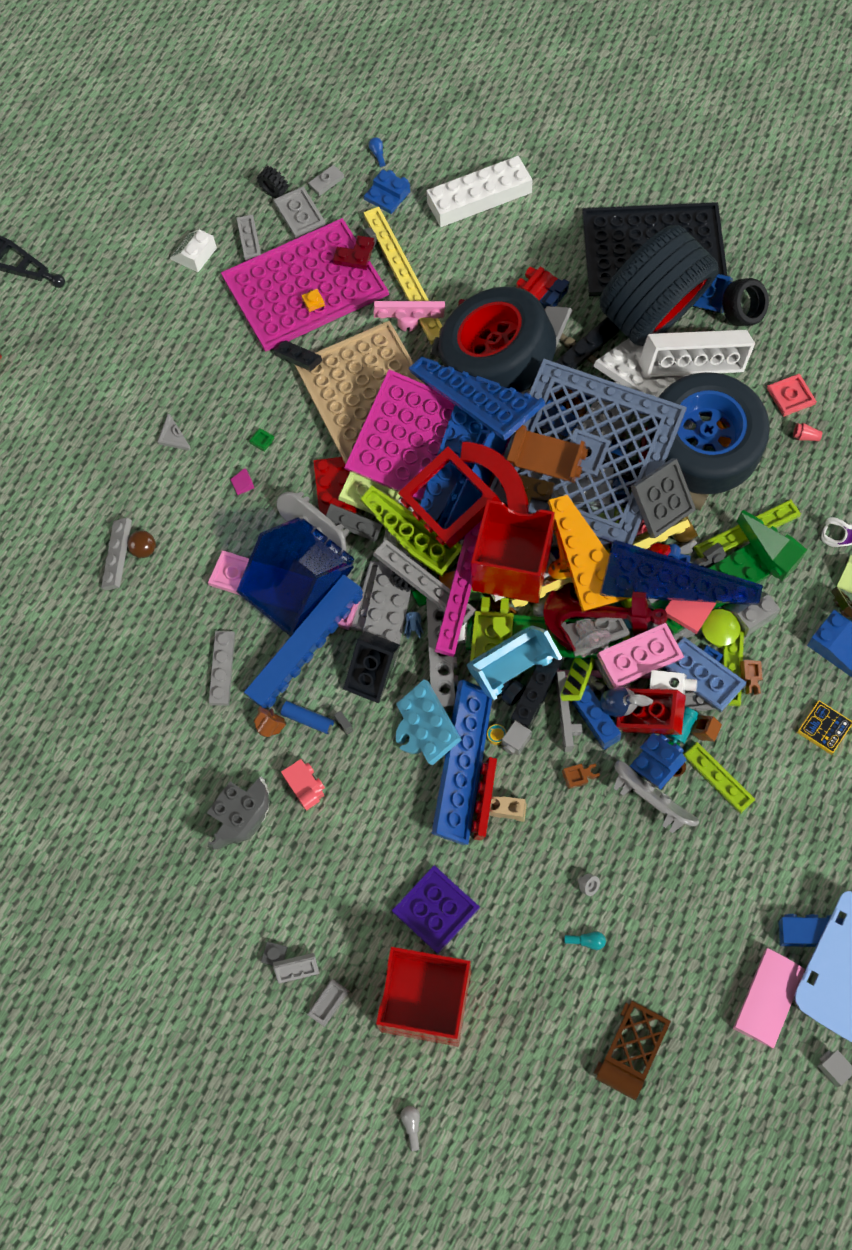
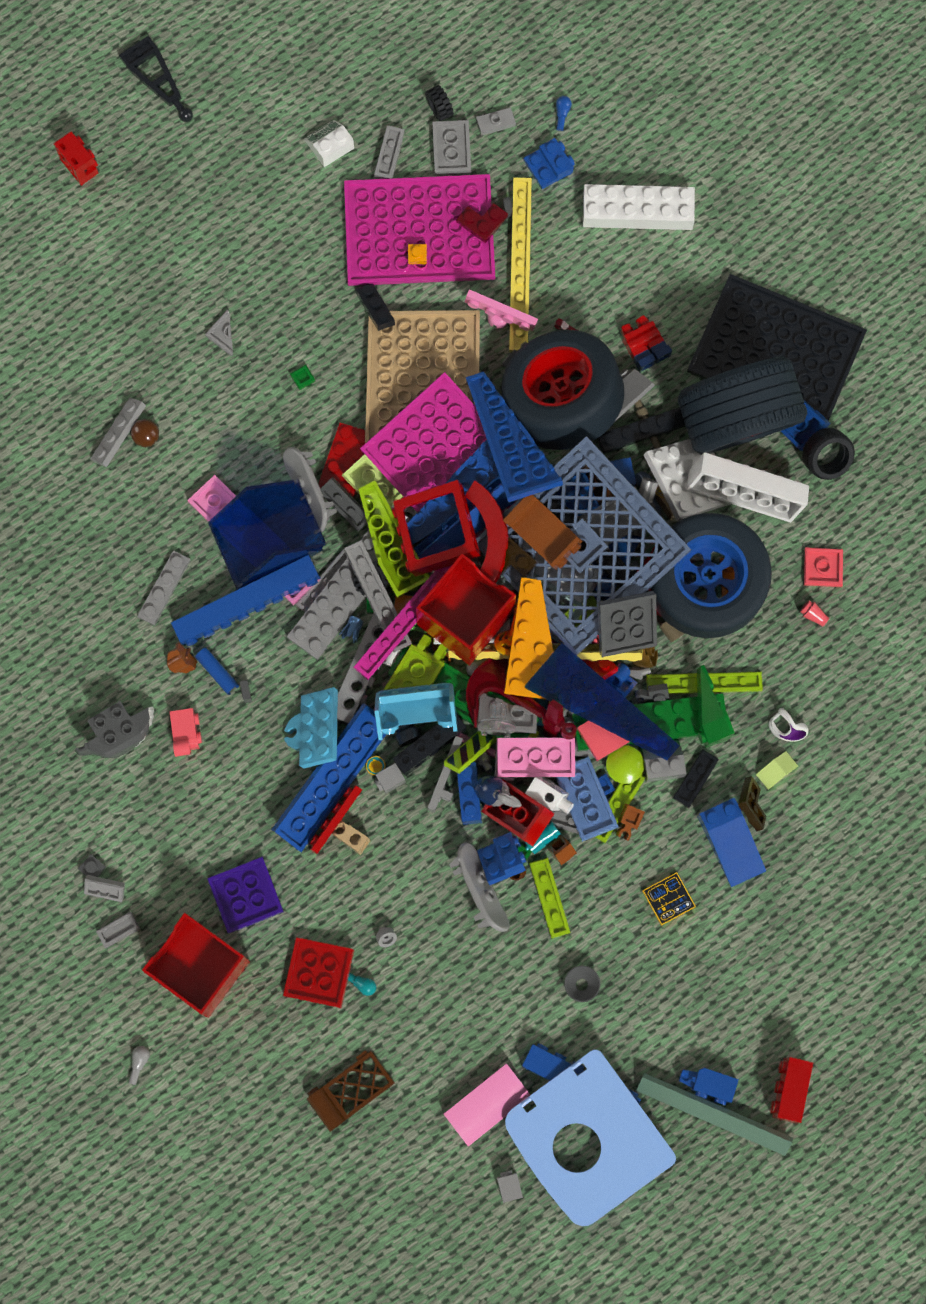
camera: 20 degrees right, 10 degrees up
(242, 482) = (264, 413): dark pink slope -> none
(371, 666) = (294, 651): black slope -> none
(500, 628) = (423, 672): lime piece -> none
(543, 949) = (318, 972): none -> red plate
(577, 775) = (426, 837): dark orange plate -> none
(788, 615) = (695, 778): none -> black tile
(801, 833) = (587, 974): none -> dark grey piece

